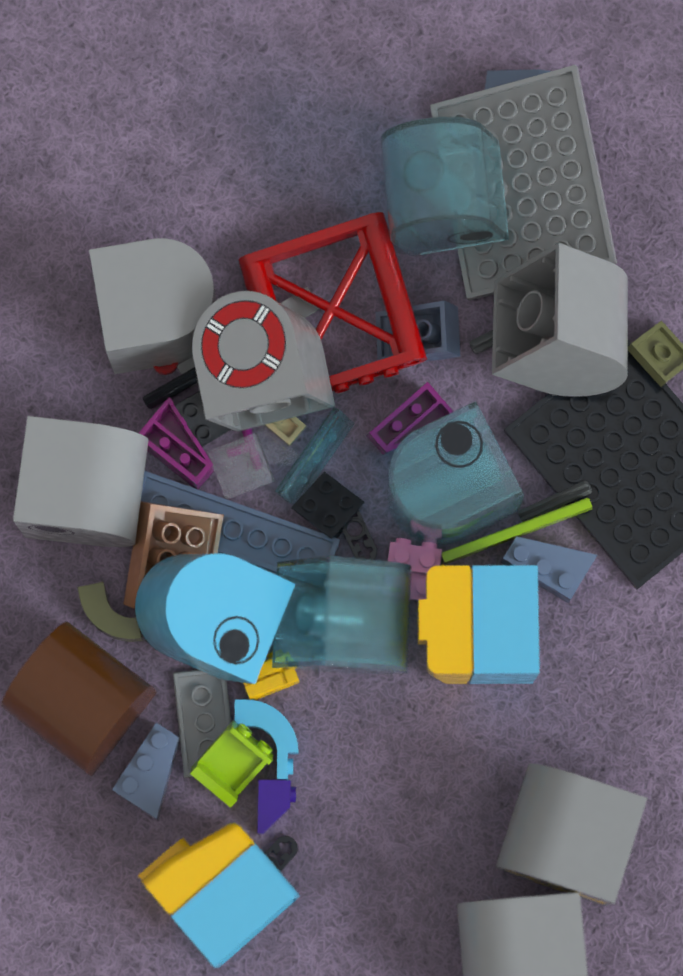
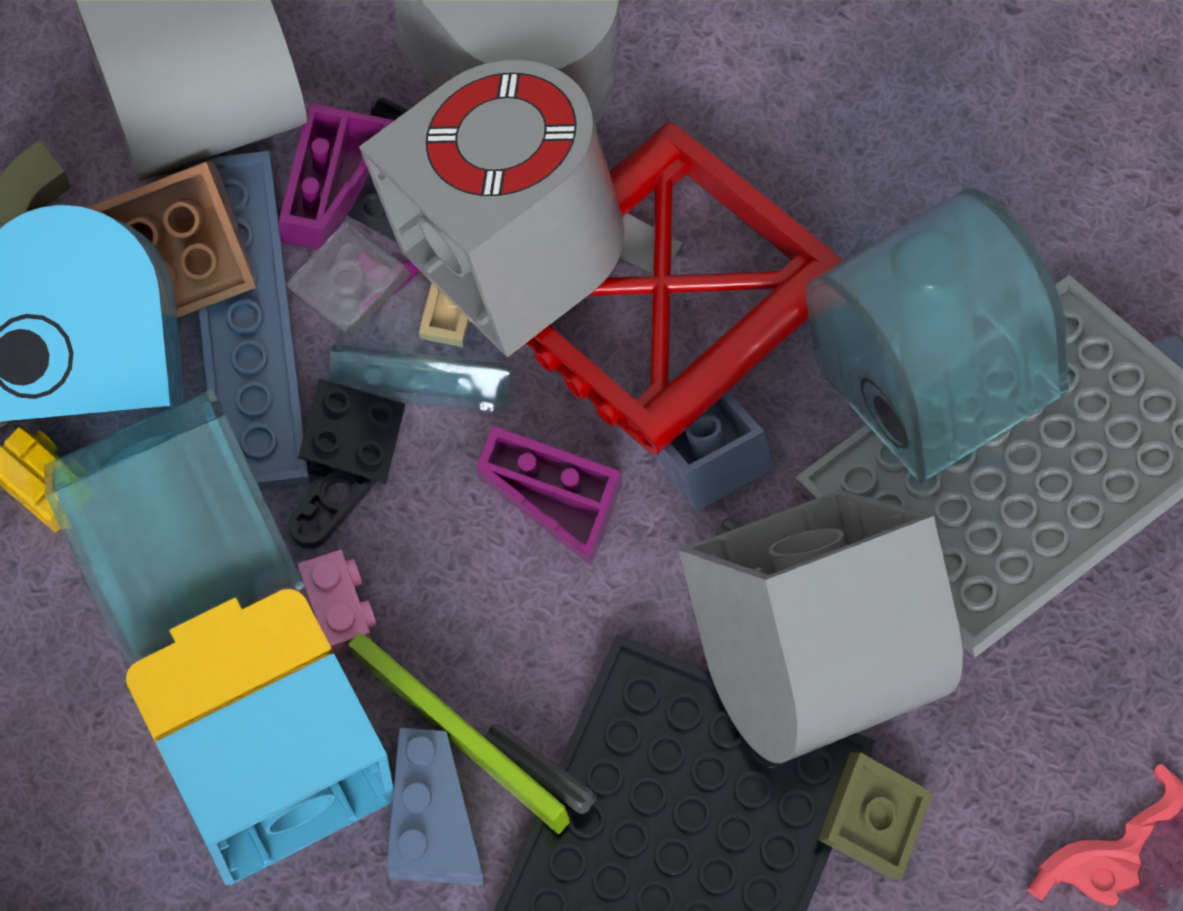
camera: 60 degrees right, 10 degrees down
(451, 480) = (477, 571): clear light blue brick -> none

